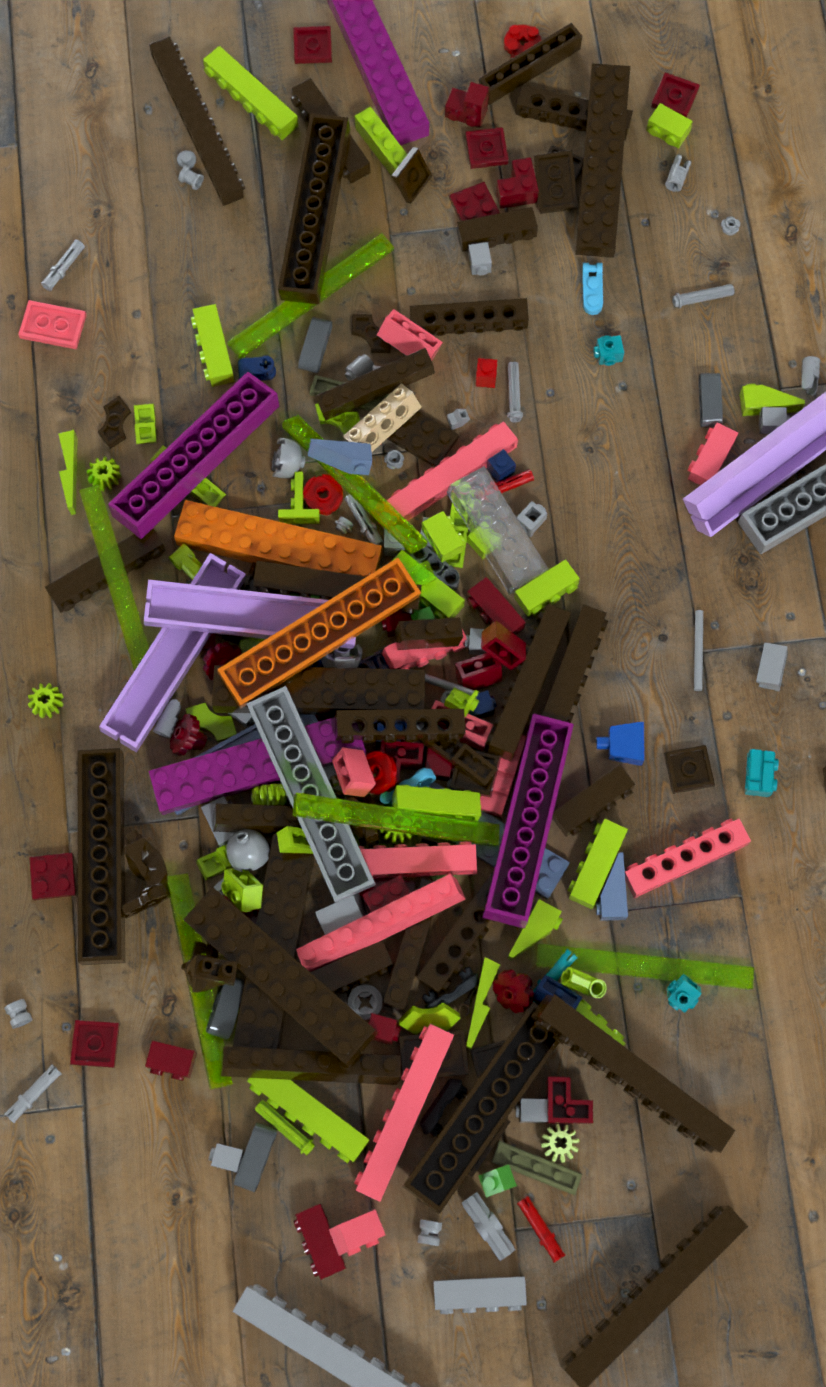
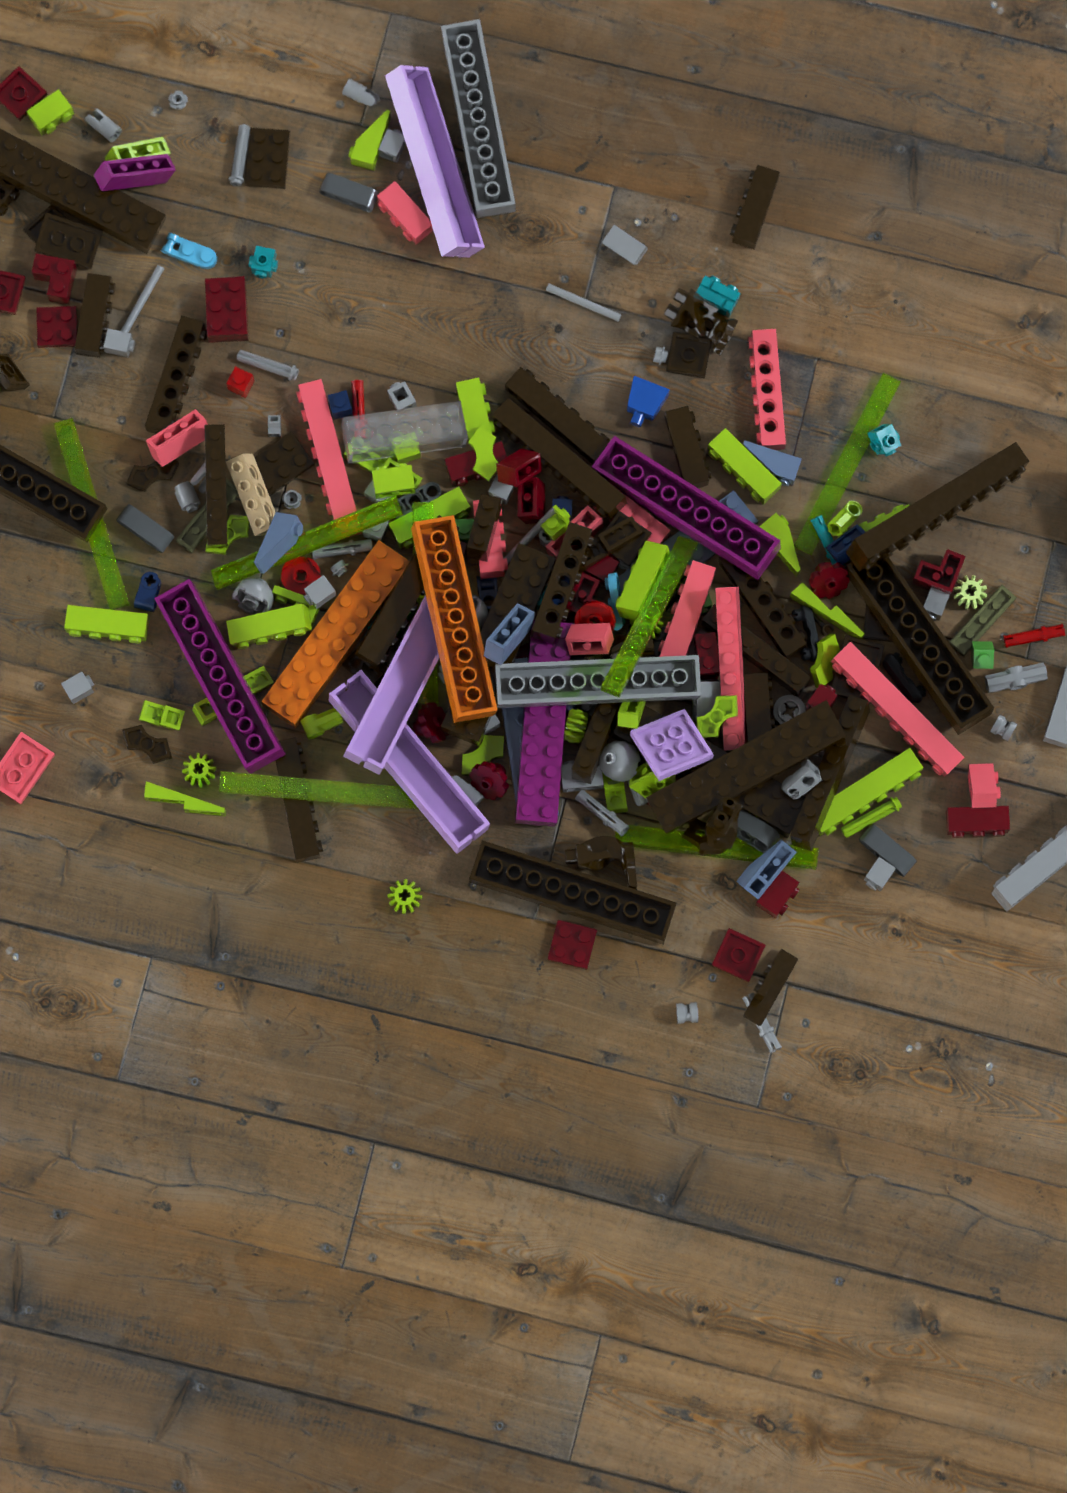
camera: 70 degrees left, 5 degrees up
(70, 1088) = (770, 987): none -> dark brown bracket
(144, 343) = (78, 687): none -> light grey brick
(187, 1036) = (766, 868): none -> sand blue slope
(188, 863) = (619, 826): none -> light grey pin
(261, 481) = (269, 625): none -> lime brick
(275, 892) = (671, 744): none -> lavender plate
(288, 1038) = (801, 780): none -> light grey leg
(308, 510) = (319, 592): none -> light grey brick
(321, 688) = (509, 634): none -> sand blue brick
(333, 931) = (723, 709): none -> lime tile
(514, 605) = (483, 444): none -> lime tile
(529, 265) = (142, 299): none -> light grey bar
(550, 336) = (226, 309): none -> dark red brick
(641, 205) = (134, 172): none -> magenta brick
(662, 208) = (138, 149): none -> lime slope
(676, 741) = (660, 355): none -> light grey plate
(711, 320) = (268, 158): none -> dark brown plate
(735, 757) = (697, 310): none -> dark brown hips

